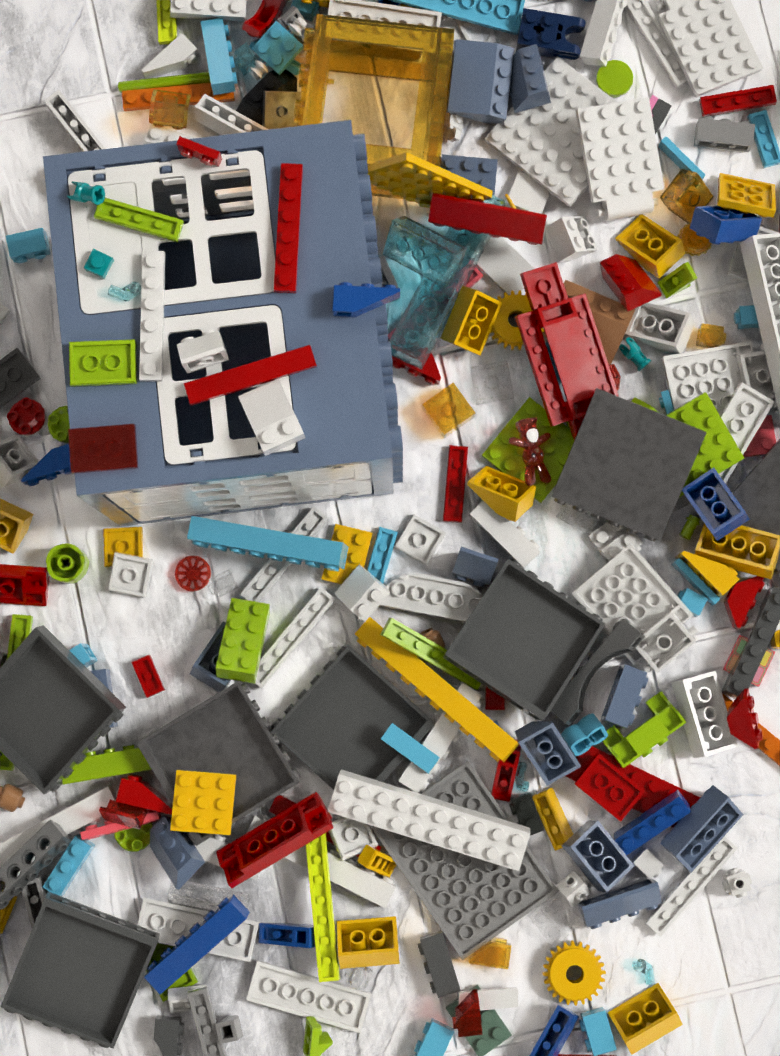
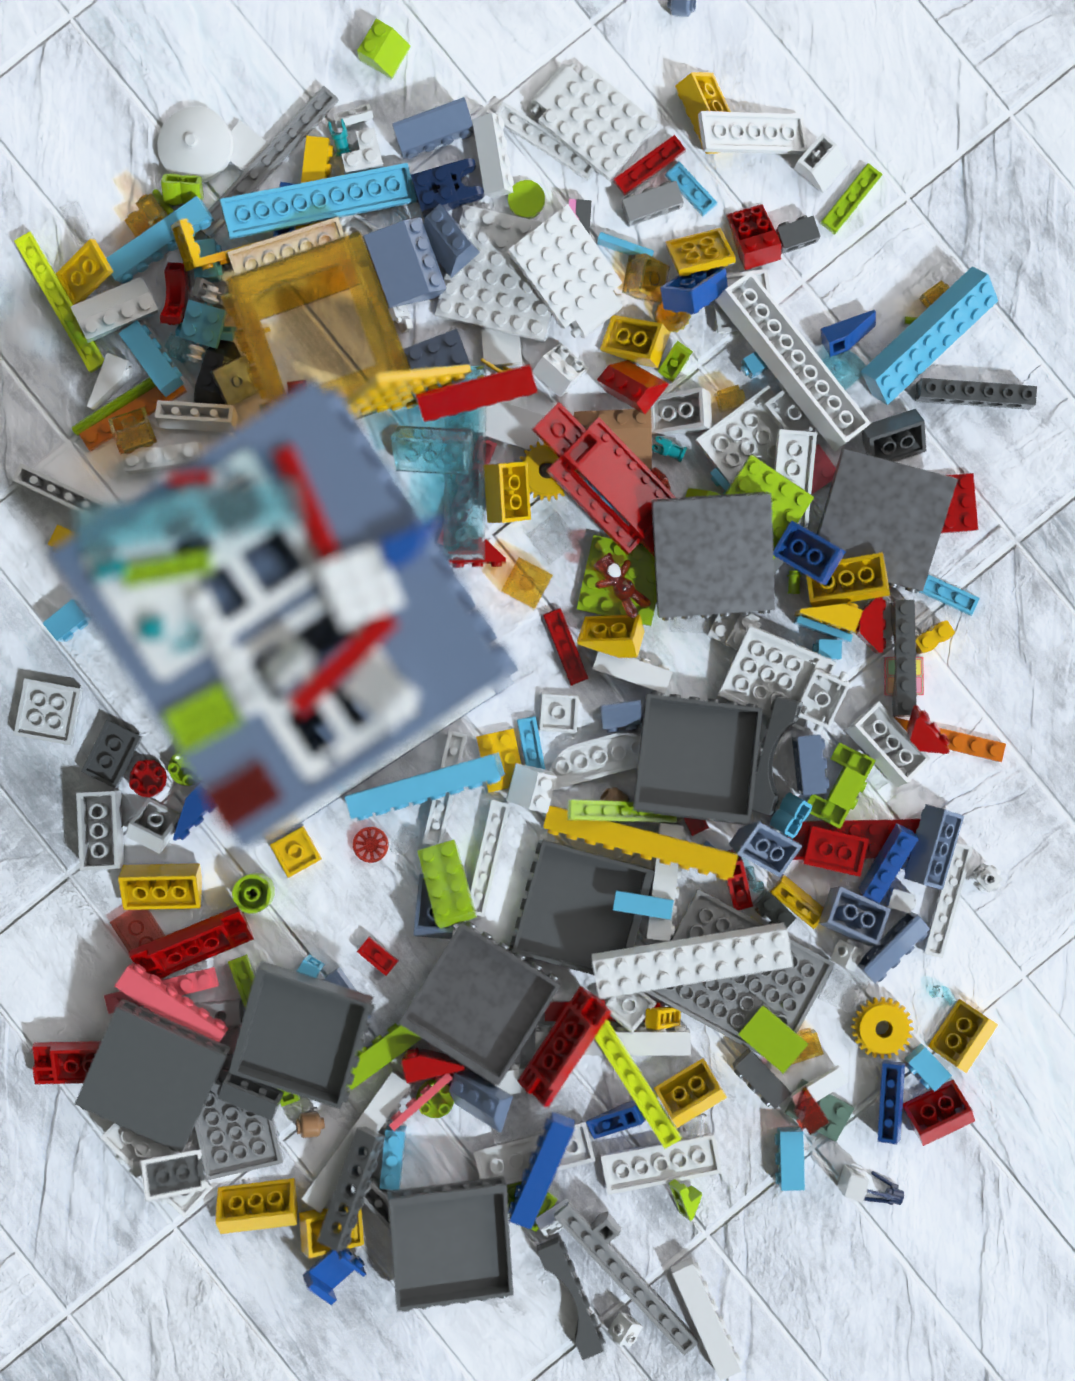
camera: 25 degrees left, 5 degrees up
(123, 814) = (419, 1090): clear red panel -> none
(130, 574) = (315, 874): white tile -> none
(182, 183) = (190, 517): none -> clear light blue brick
(203, 802) = (485, 1046): yellow plate -> none
(299, 314) = (359, 585): none -> white plate
(387, 276) = (411, 490): flat silver plate -> none
(468, 931) = (773, 1039): none -> lime tile

